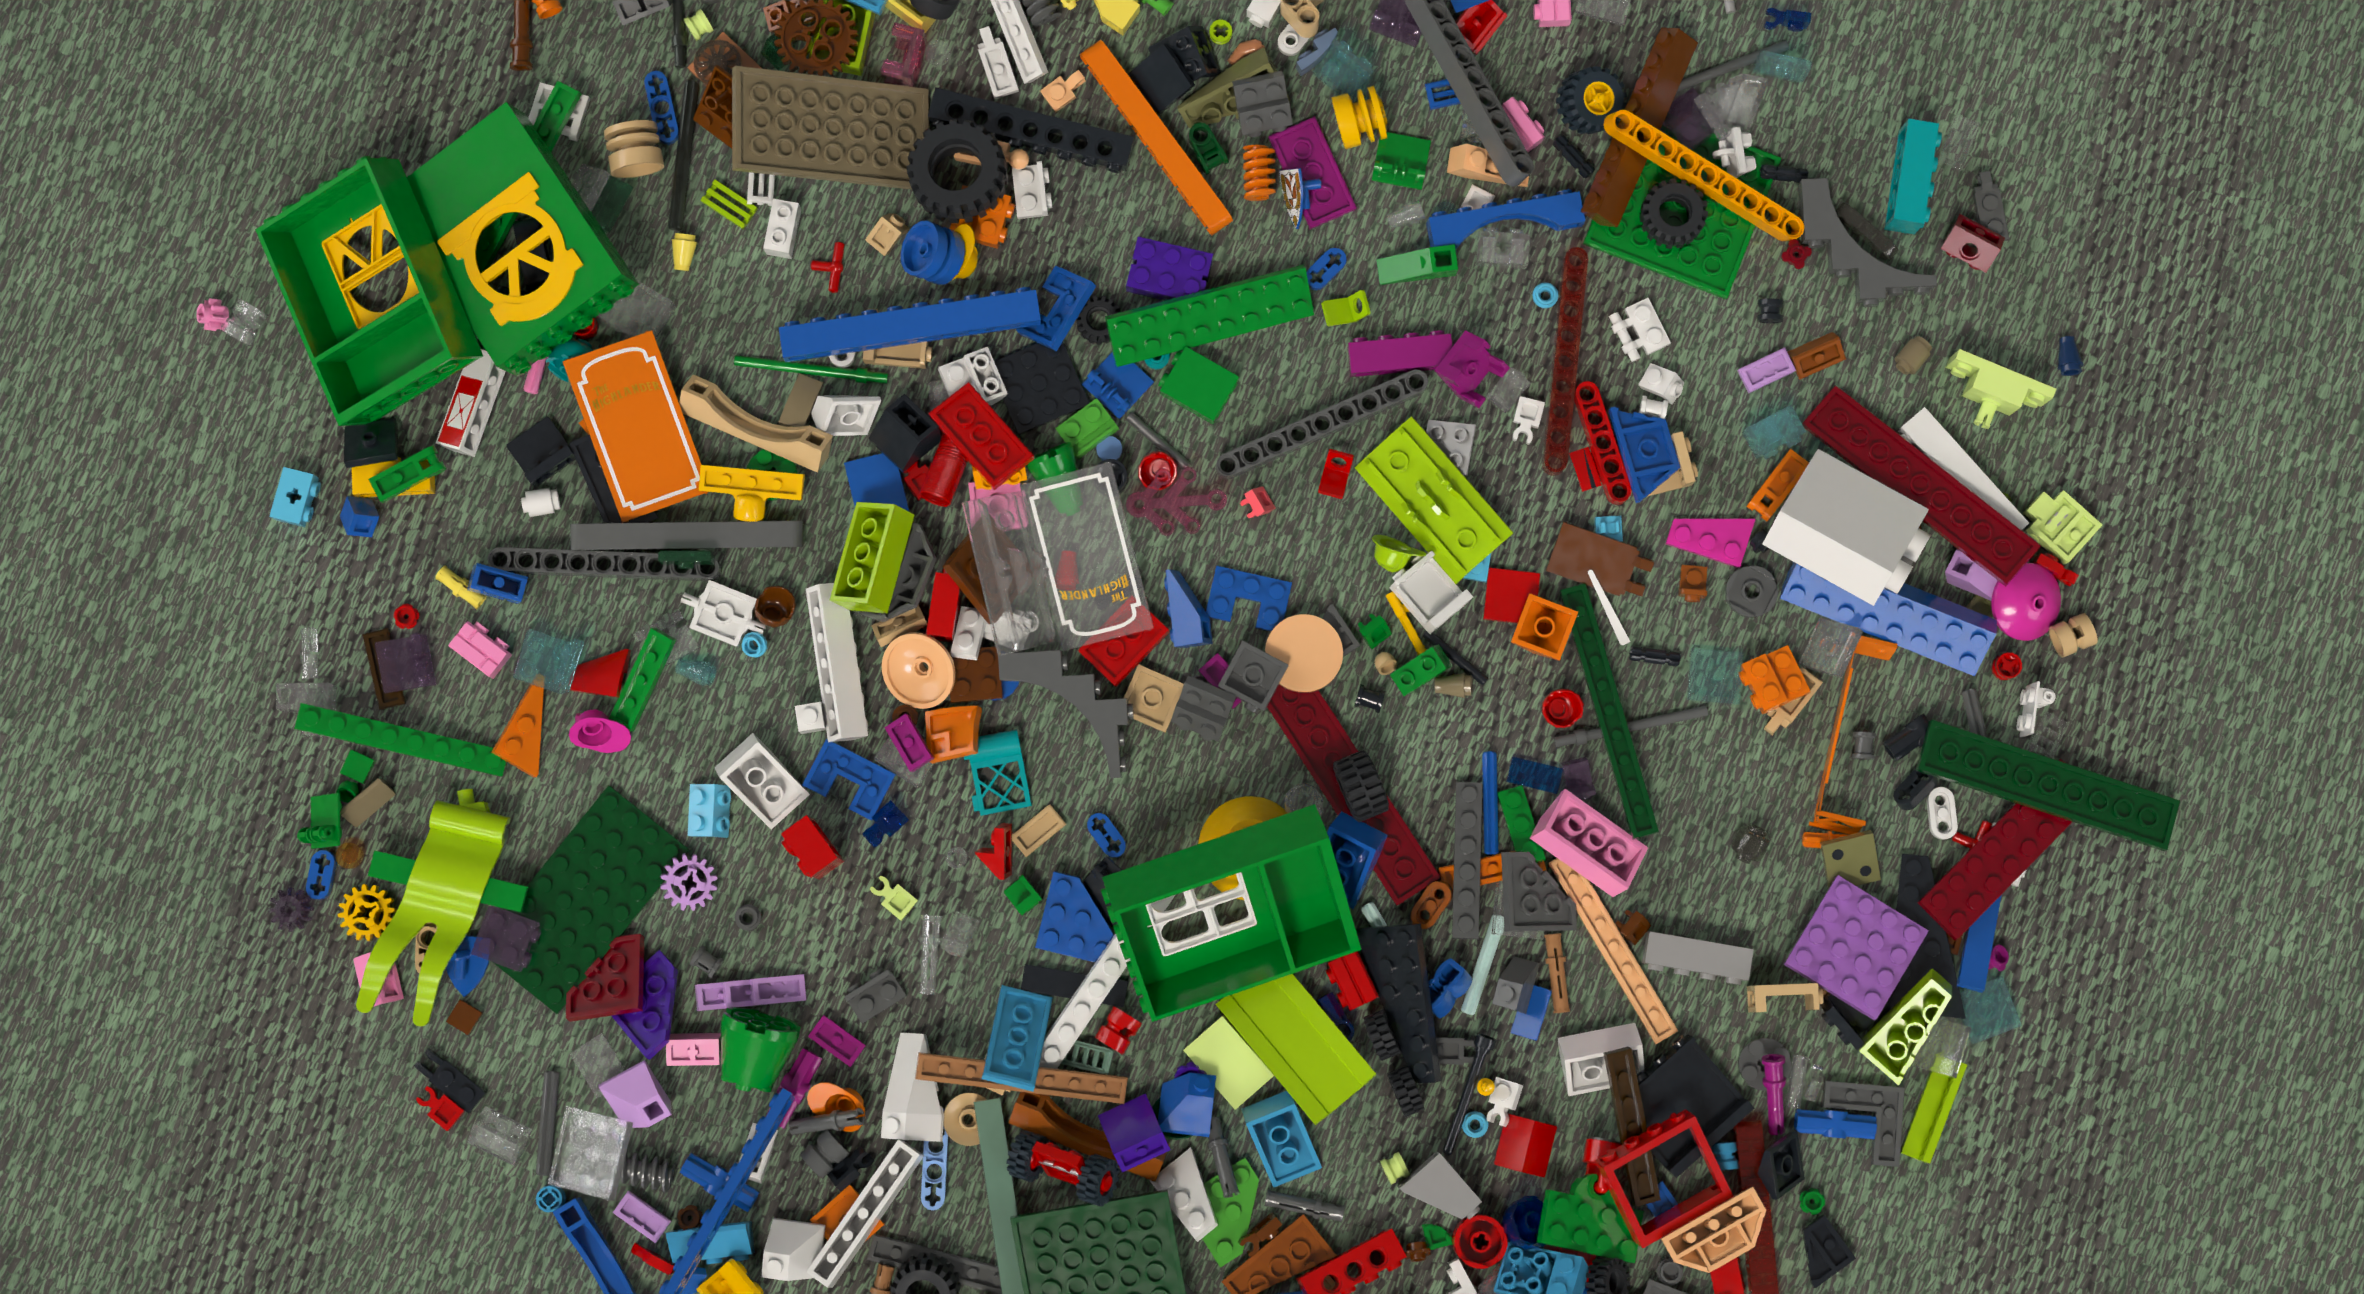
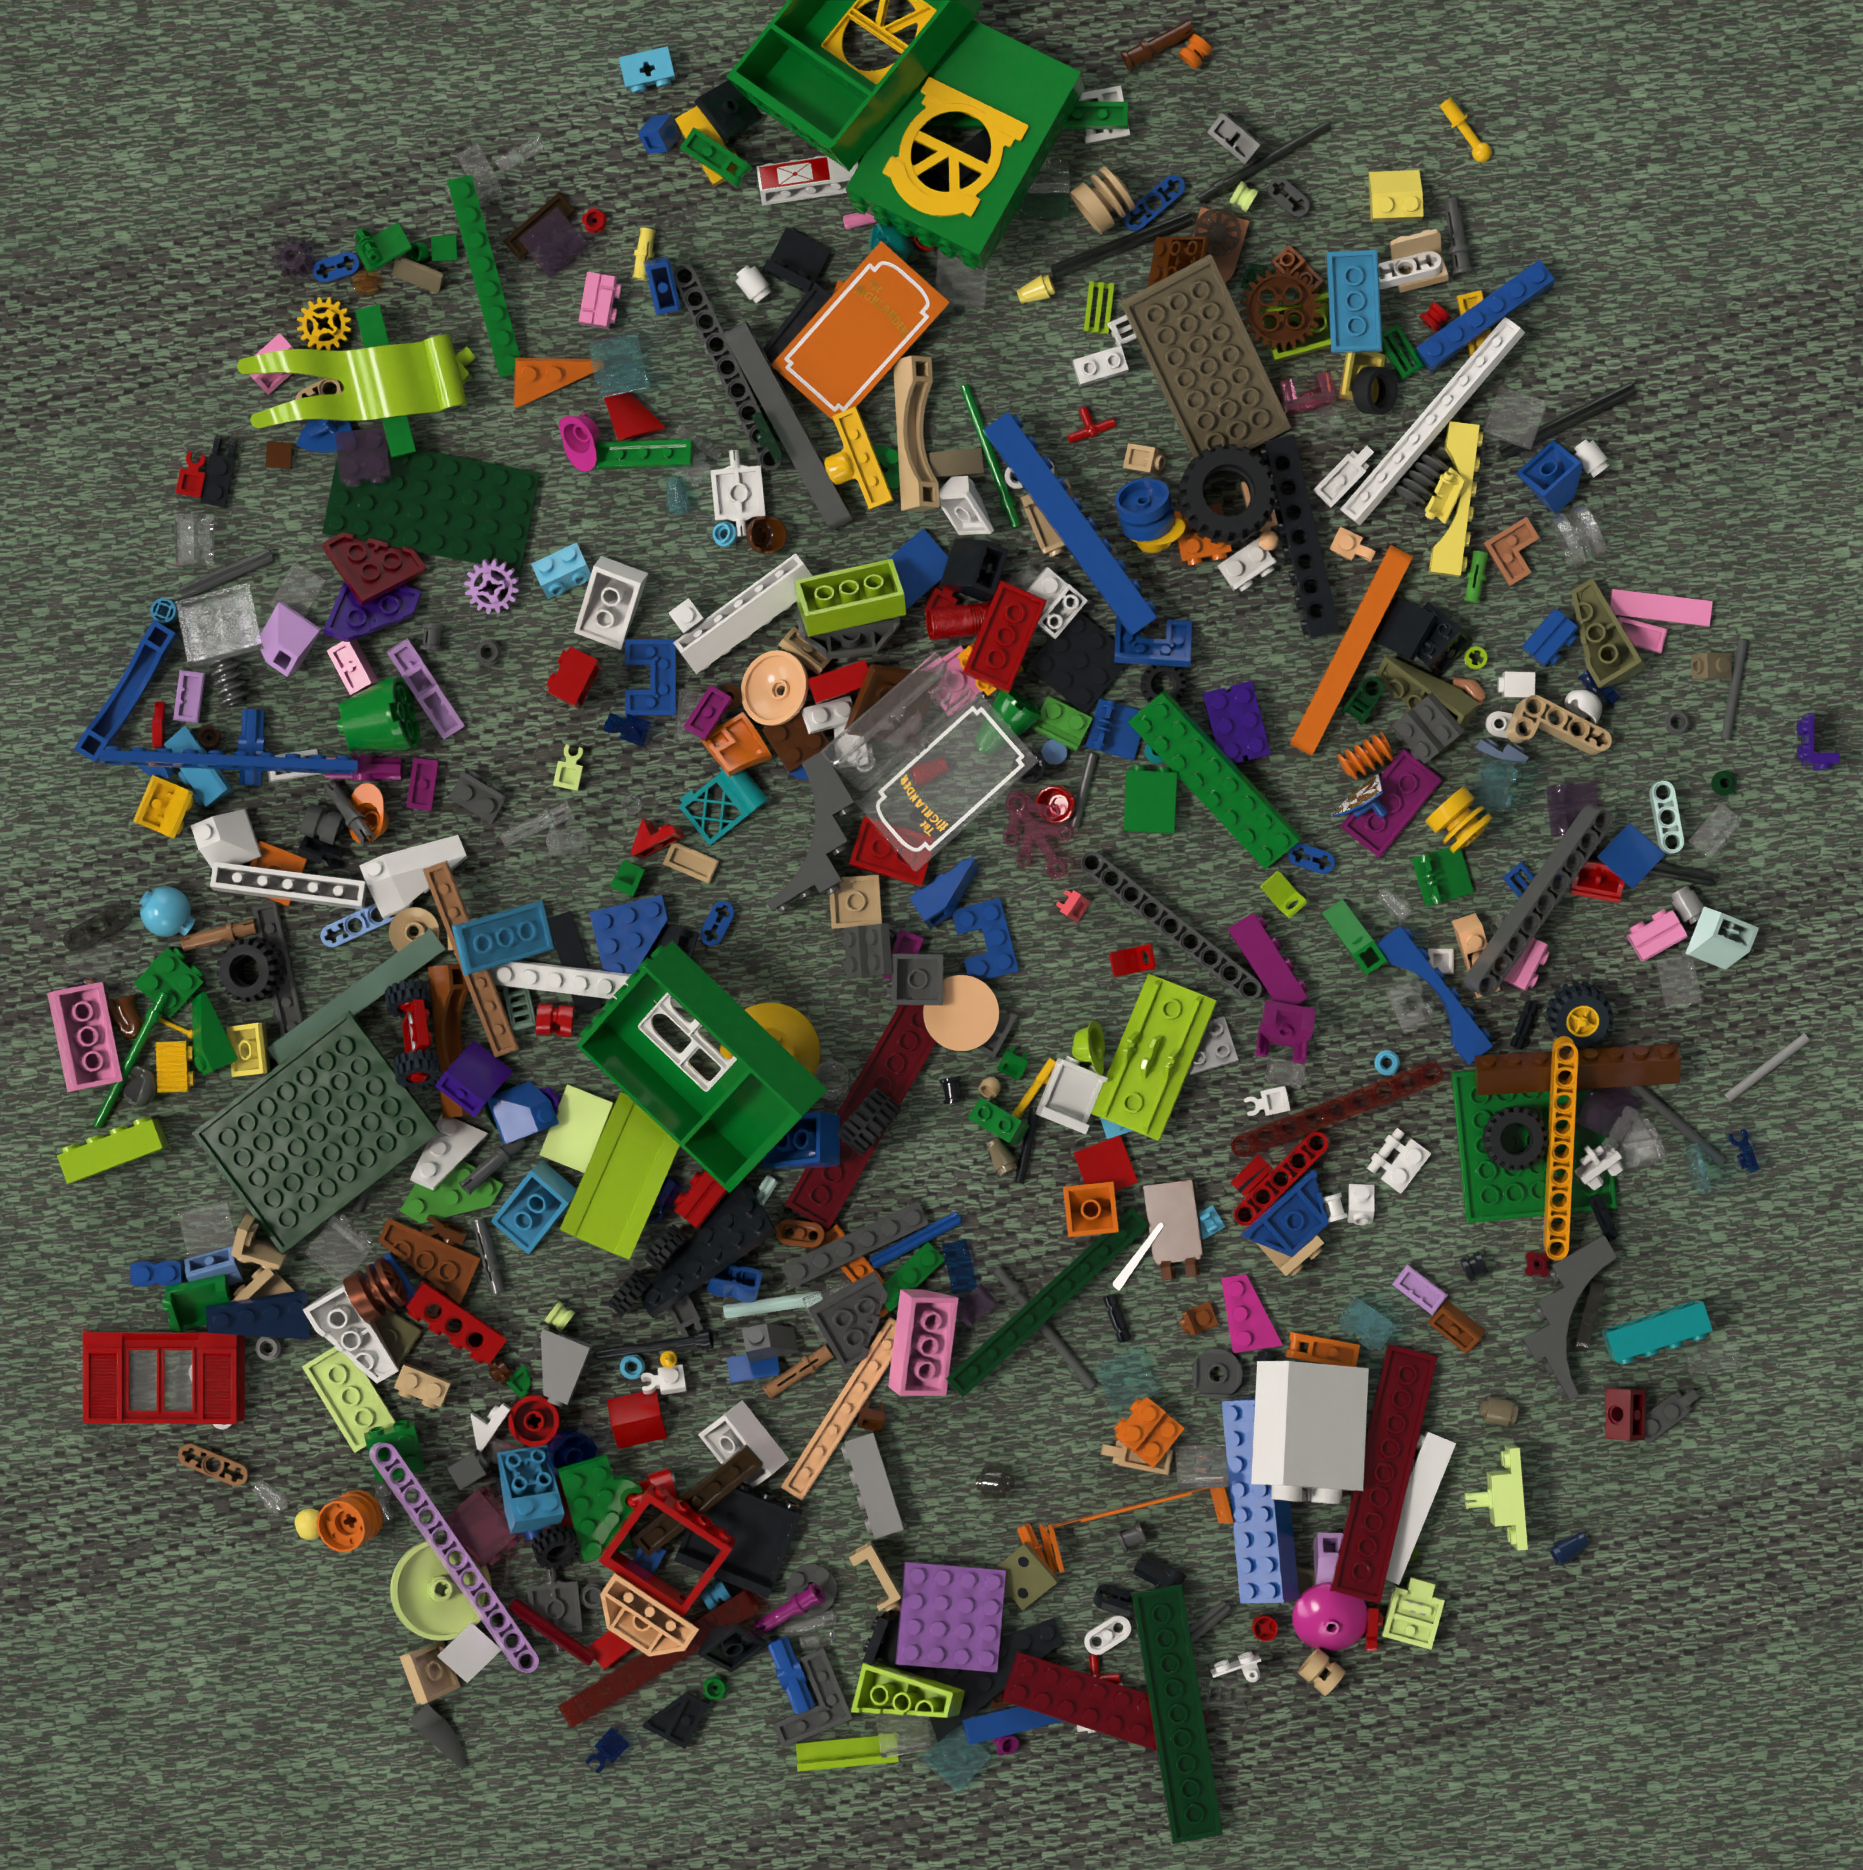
camera: 60 degrees right, 5 degrees up
(1562, 700) = (1026, 1253): red hair -> none

